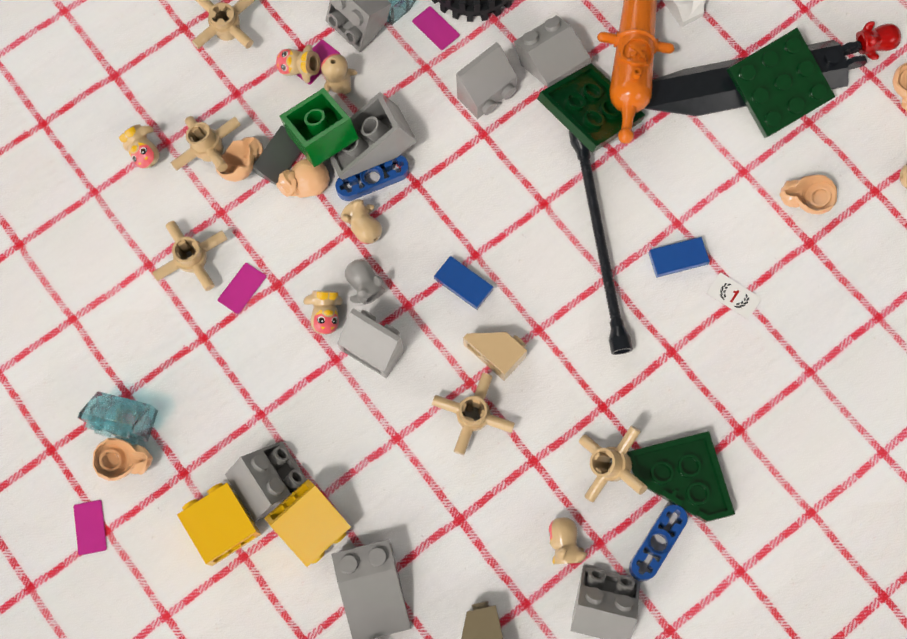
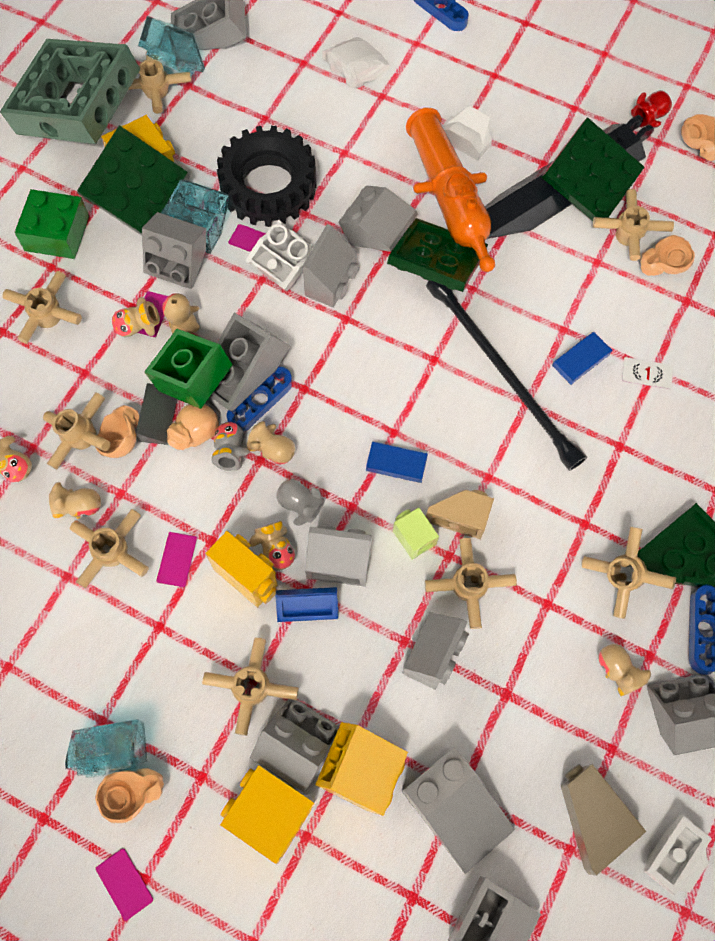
camera: 30 degrees left, 5 degrees down
(180, 206) = (76, 503): none -> tan animal
(241, 413) = (257, 695): none -> tan bar
(284, 313) = (243, 569): none -> yellow brick
(325, 206) = (227, 443): none -> light grey animal
(328, 372) = (306, 604): none -> blue tile
(414, 456) = (432, 653): none -> light grey slope
(447, 350) = (415, 532): none -> yellowish green brick
(450, 50) = (280, 255): none -> white slope
(797, 142) = (632, 225): none -> tan bar

